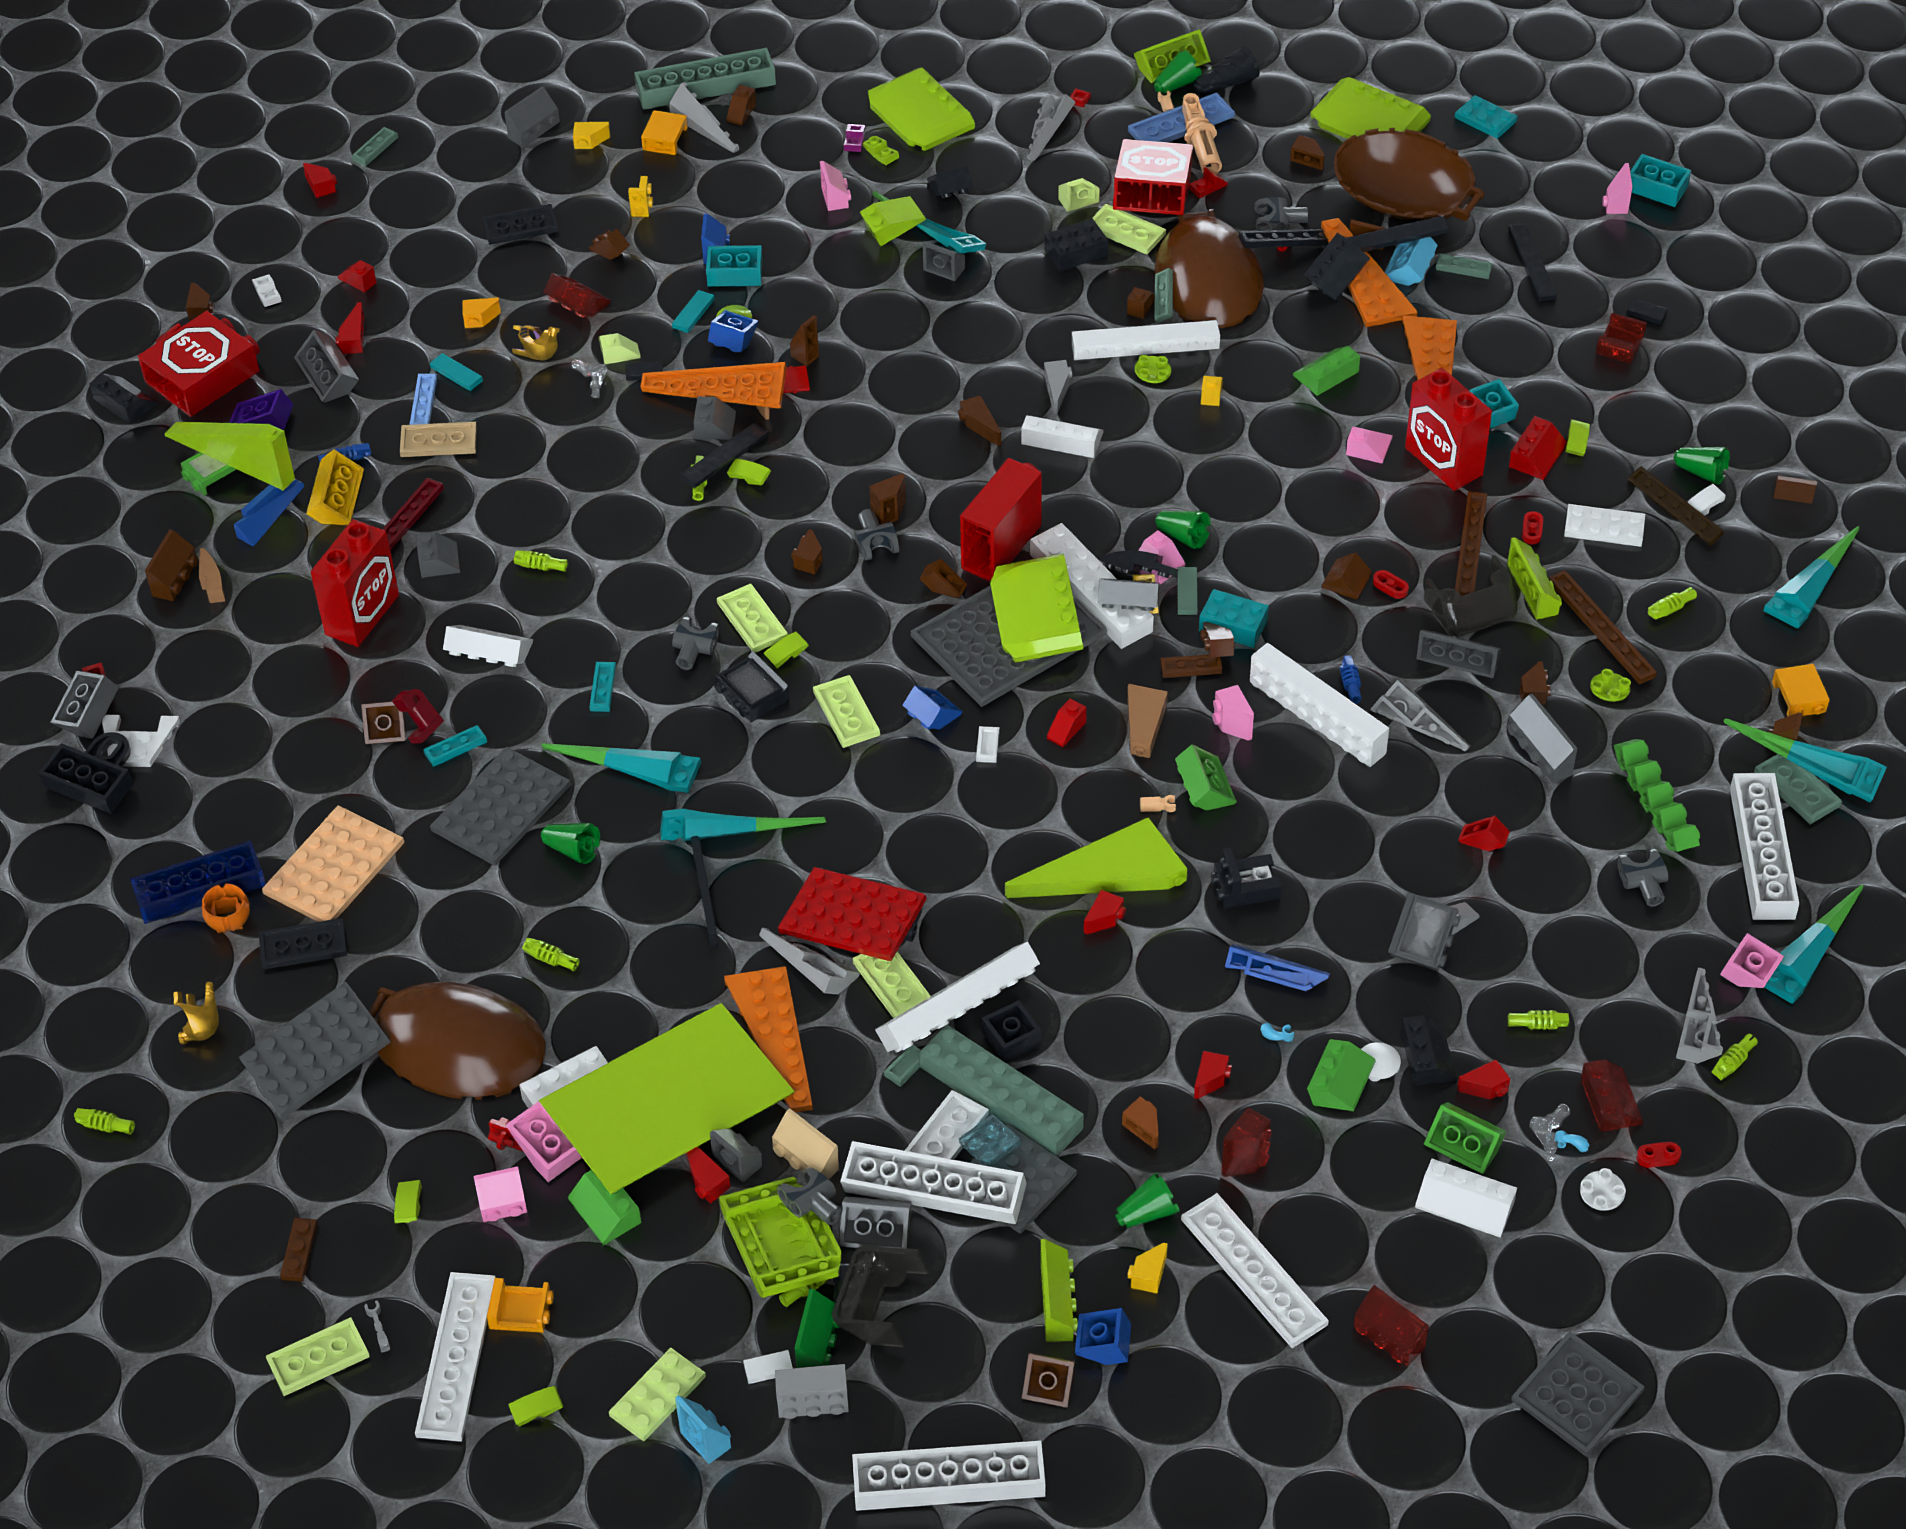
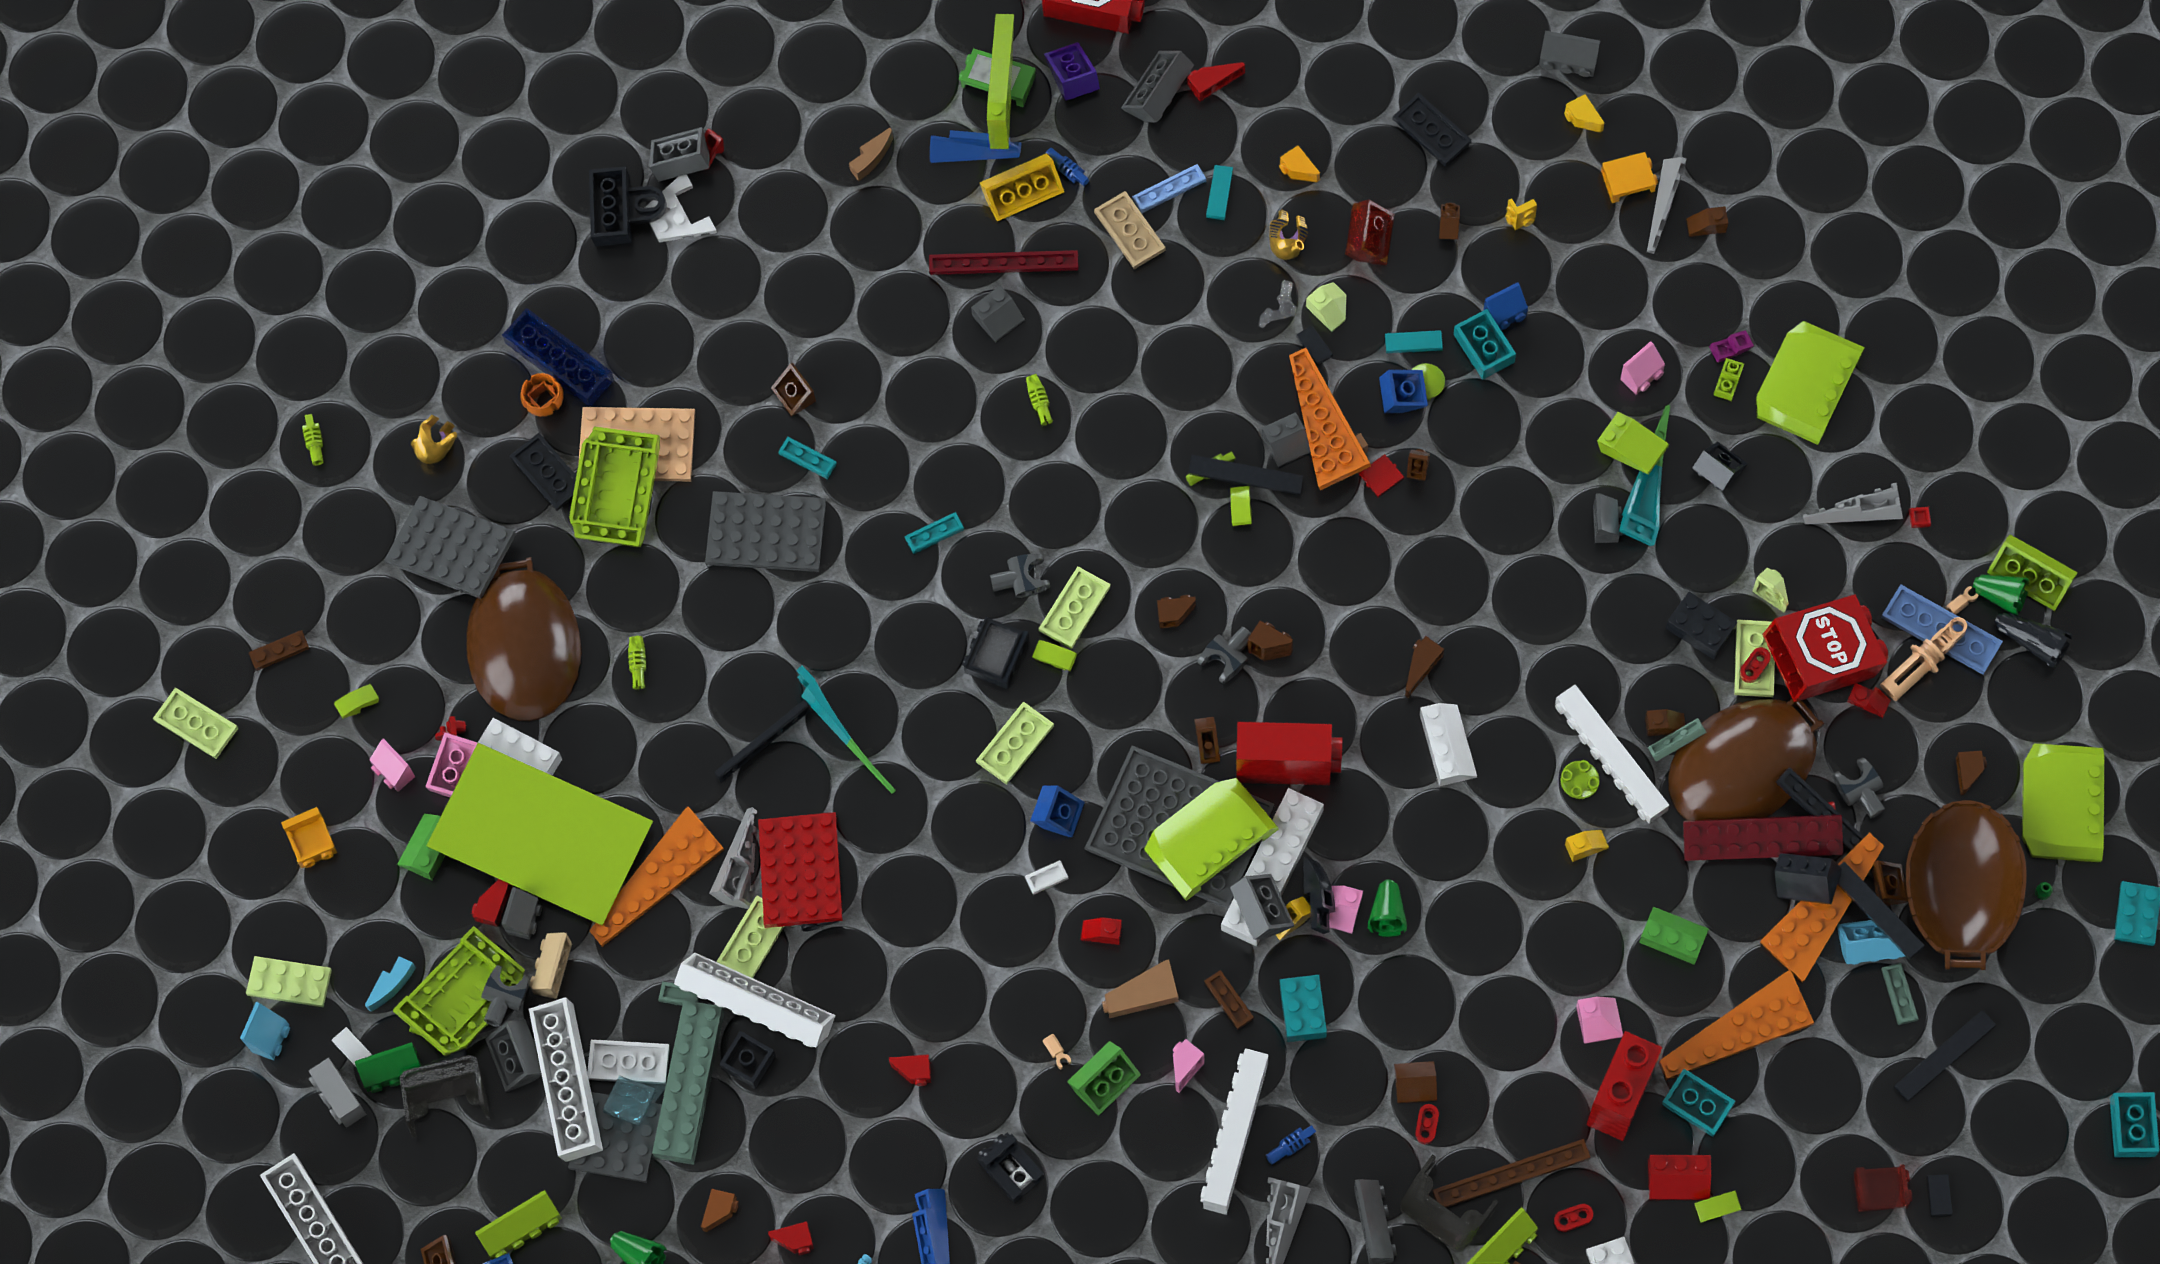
camera: 65 degrees right, 20 degrees up
(170, 566) = (859, 118): reddish brown slope -> none
(355, 582) = (902, 277): red brick -> none
(359, 276) = (1283, 38): red slope -> none
(364, 891) = (614, 486): none -> lime slope
(382, 1338) = (232, 760): light grey piece -> none
(421, 713) = (813, 411): dark red piece -> none
(455, 1357) = (244, 819): white plate -> none
(486, 644) = (924, 415): white slope -> none
(536, 1404) = (232, 901): lime slope -> none
(573, 840) = (753, 610): green cone -> none
(661, 768) = (872, 633): teal plate -> none
(706, 77) = (1721, 169): sand green brick -> none
(724, 1298) = (390, 983): none -> medium azure slope
(1057, 381) = (1509, 705): light grey slope -> none
(1120, 862) = (975, 1055): lime slope -> none
(1135, 225) = (1754, 665): none -> red plate
(1187, 590) = (1319, 951): sand green tile -> none
(1217, 640) = (1263, 1009): reddish brown slope -> none
(1281, 282) = (1762, 837): none -> dark red plate
(1619, 192) = (2090, 1094): bright pink slope -> none

